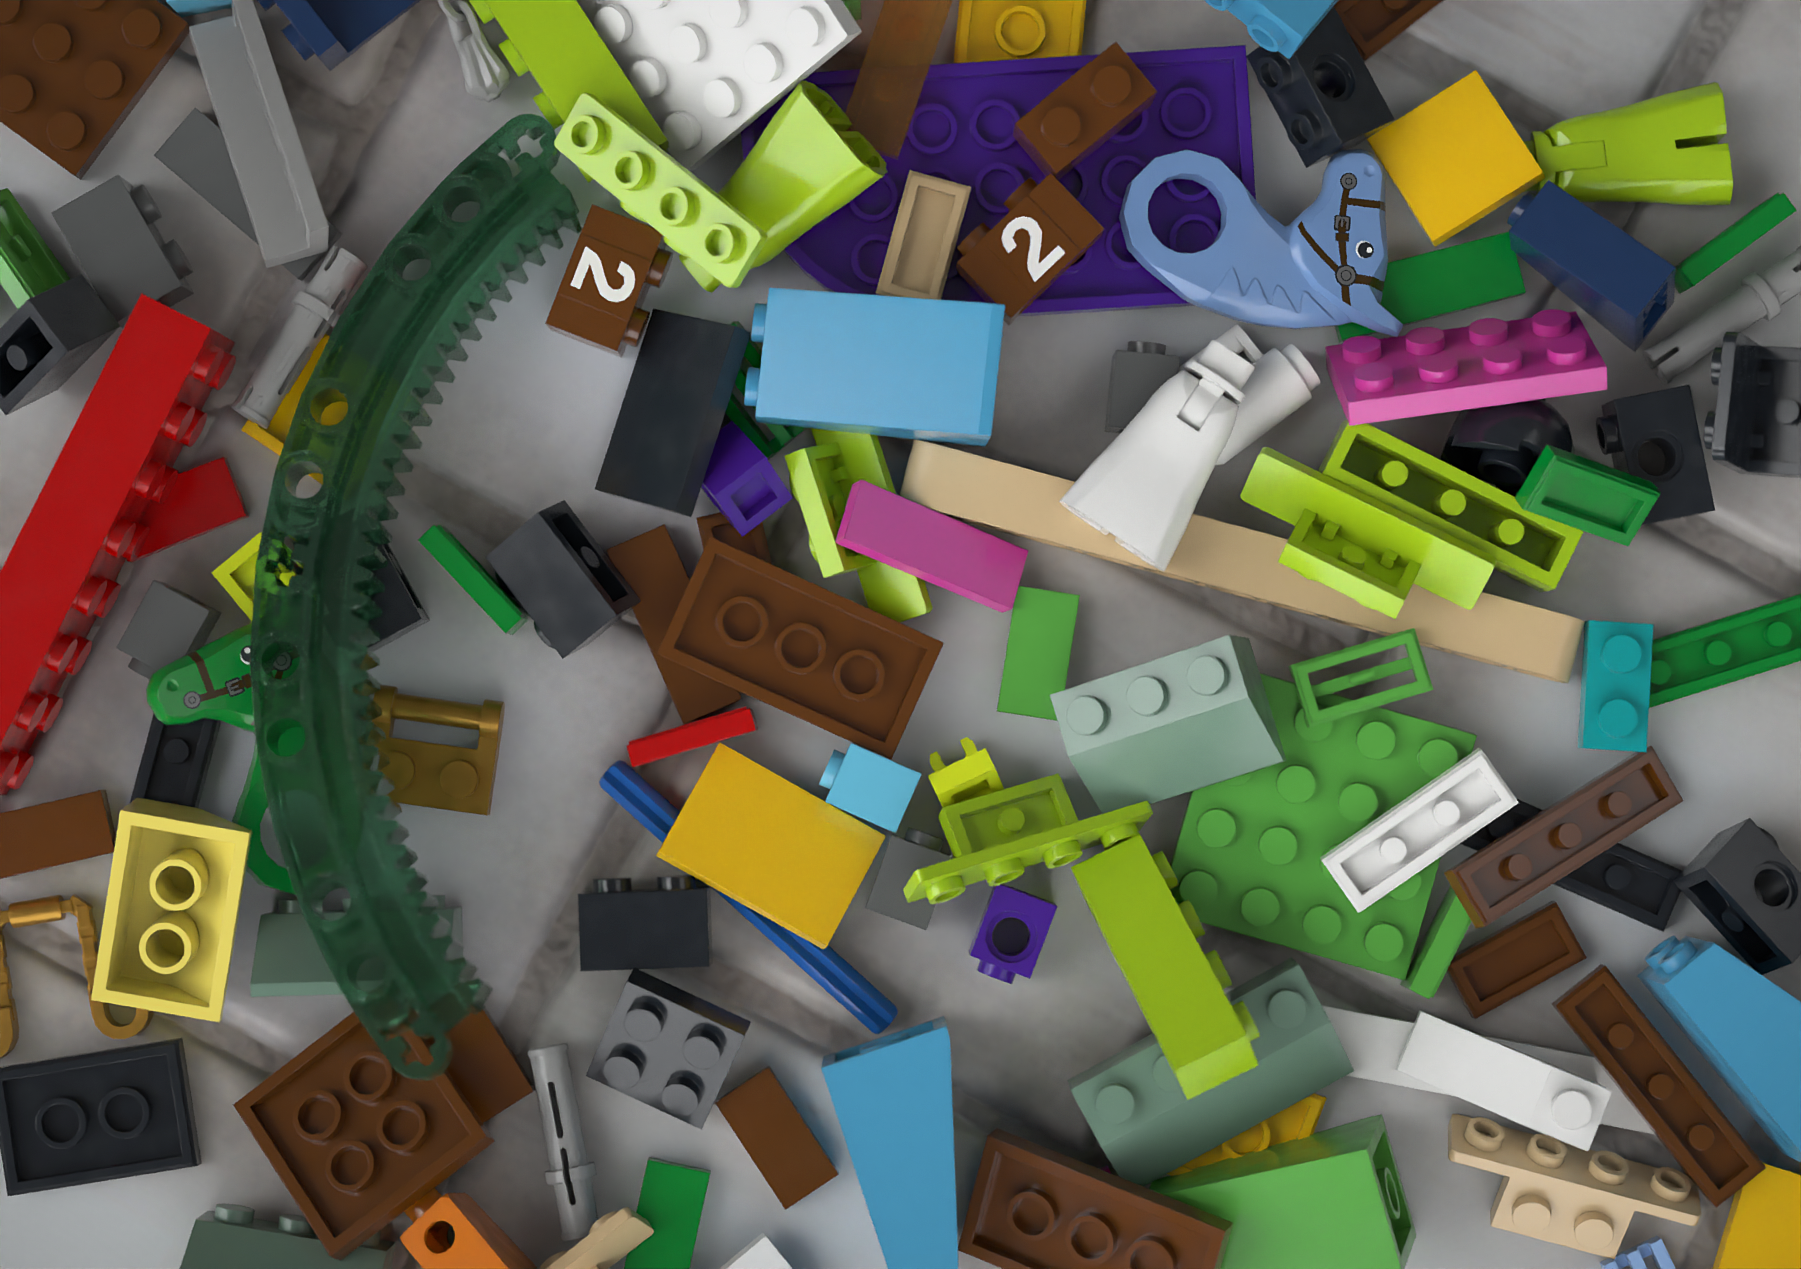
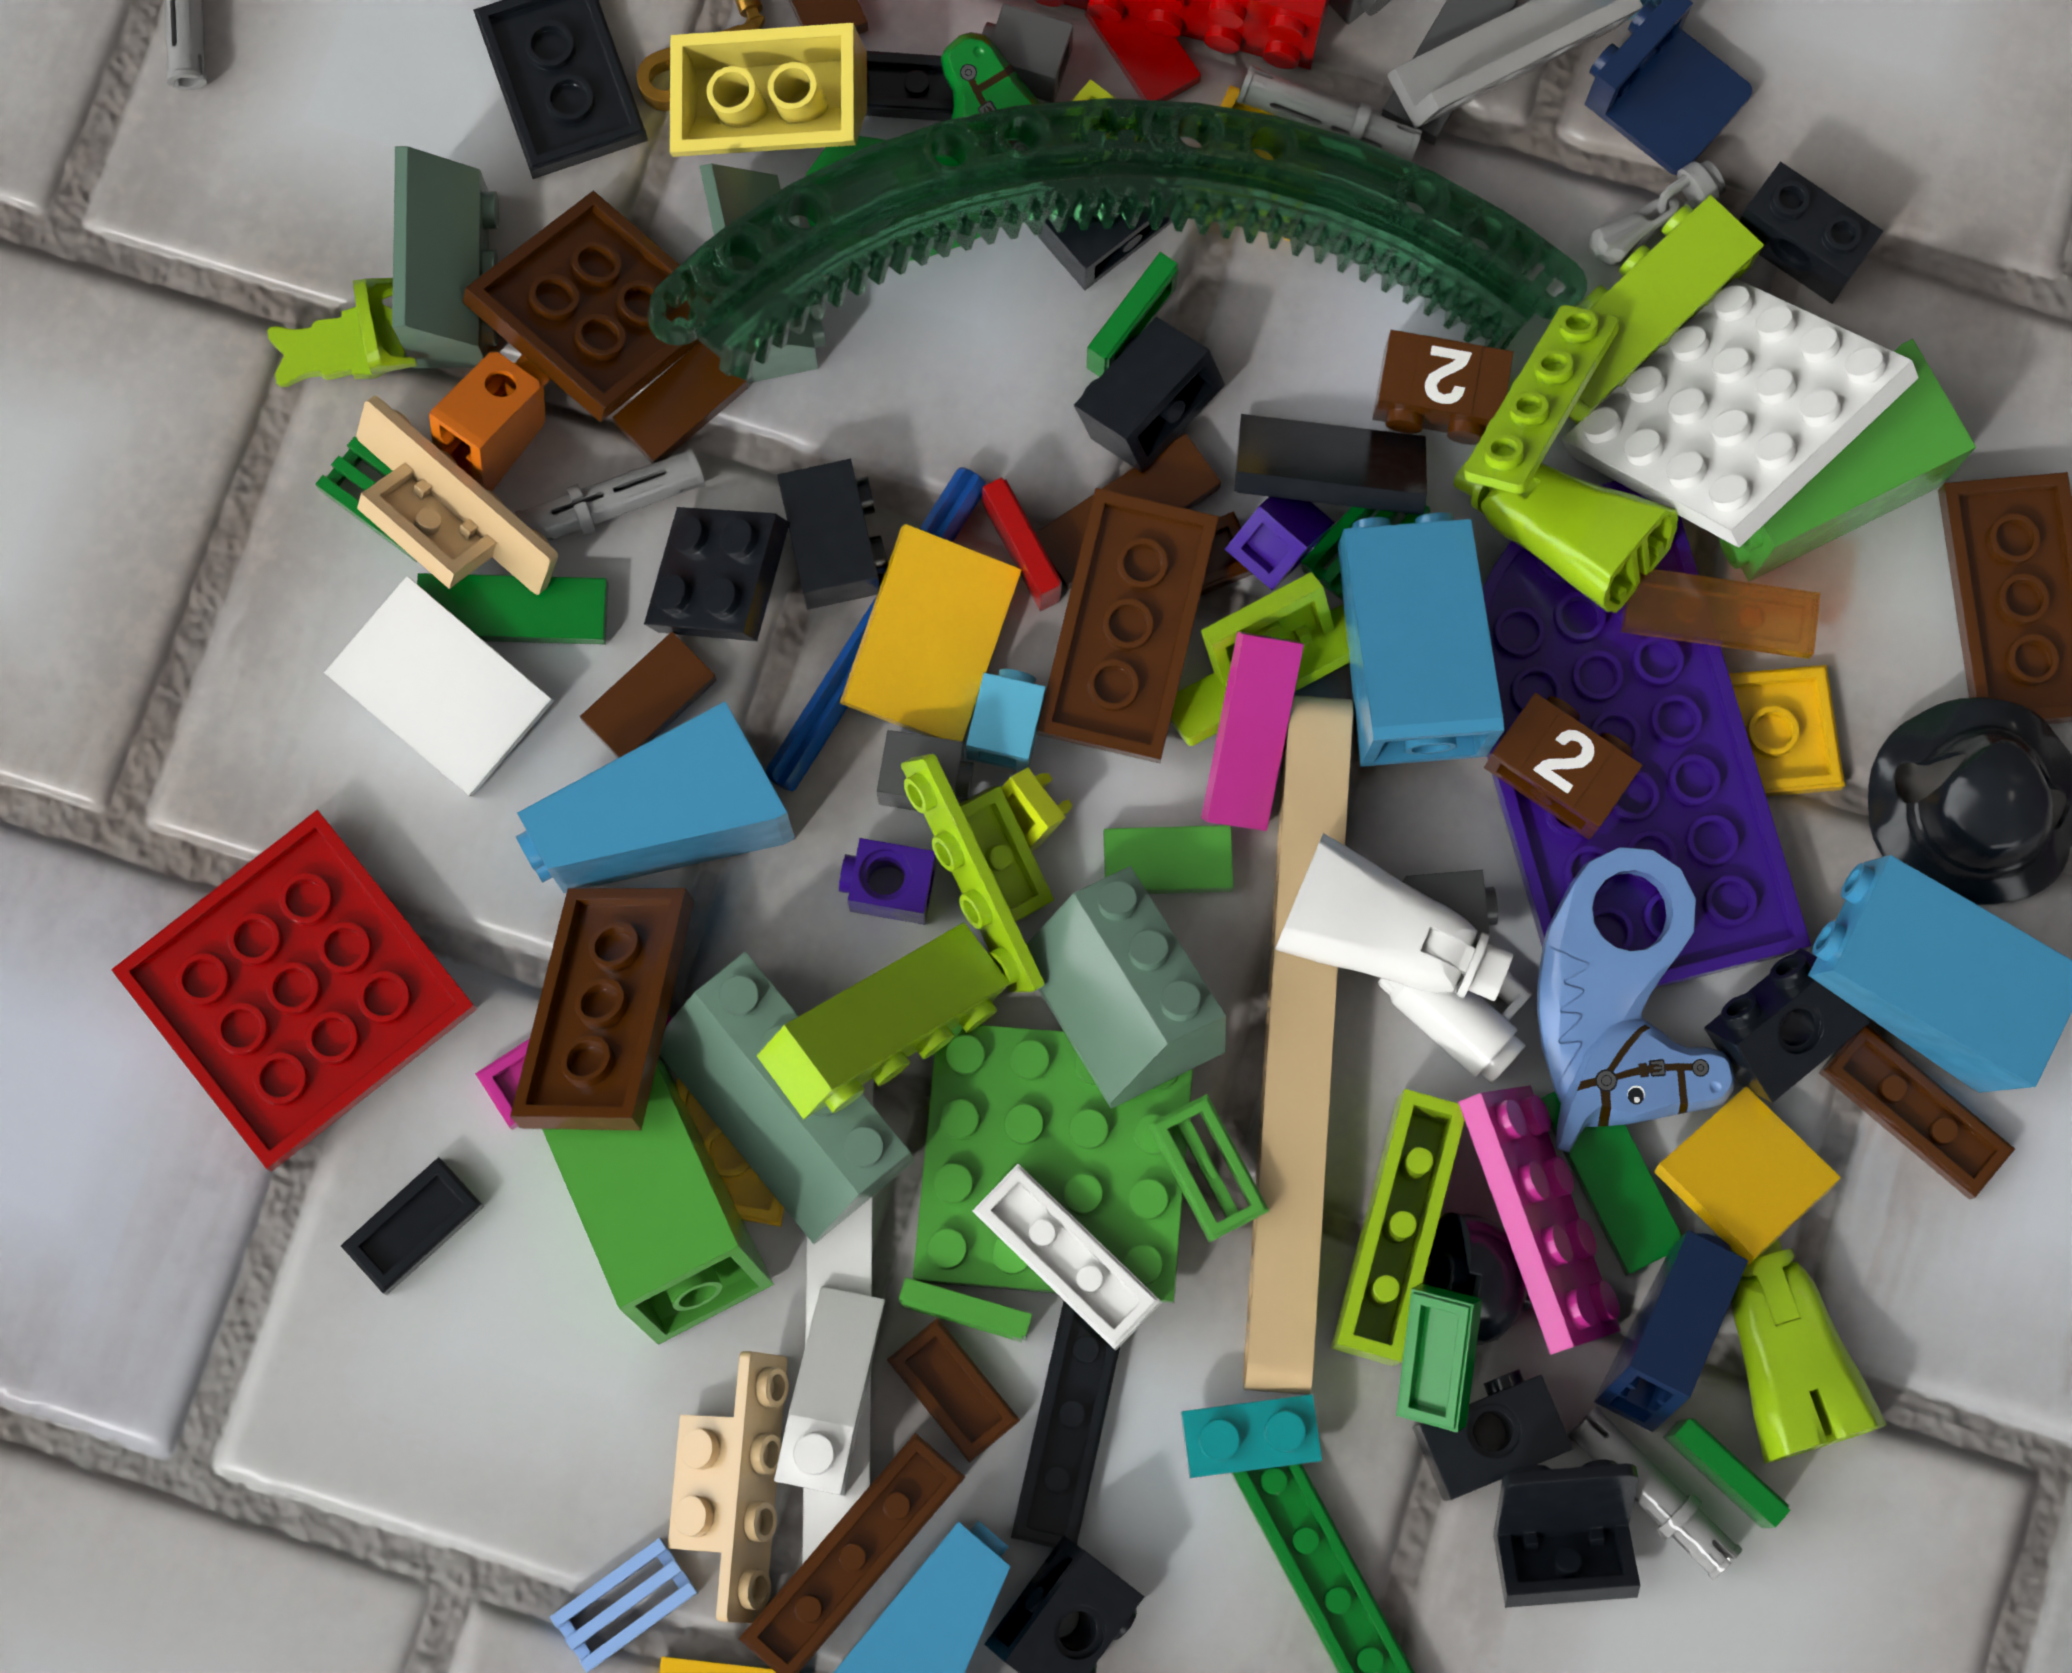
camera: 80 degrees right, 10 degrees down
(441, 773) = (941, 314): pearl gold plate -> none
(923, 237) = (1553, 666): tan tile -> none
(1084, 112) = (1708, 792): reddish brown brick -> none
(1360, 541) = (1343, 1141): lime bracket -> none
(1563, 837) = (1088, 1409): reddish brown tile -> none

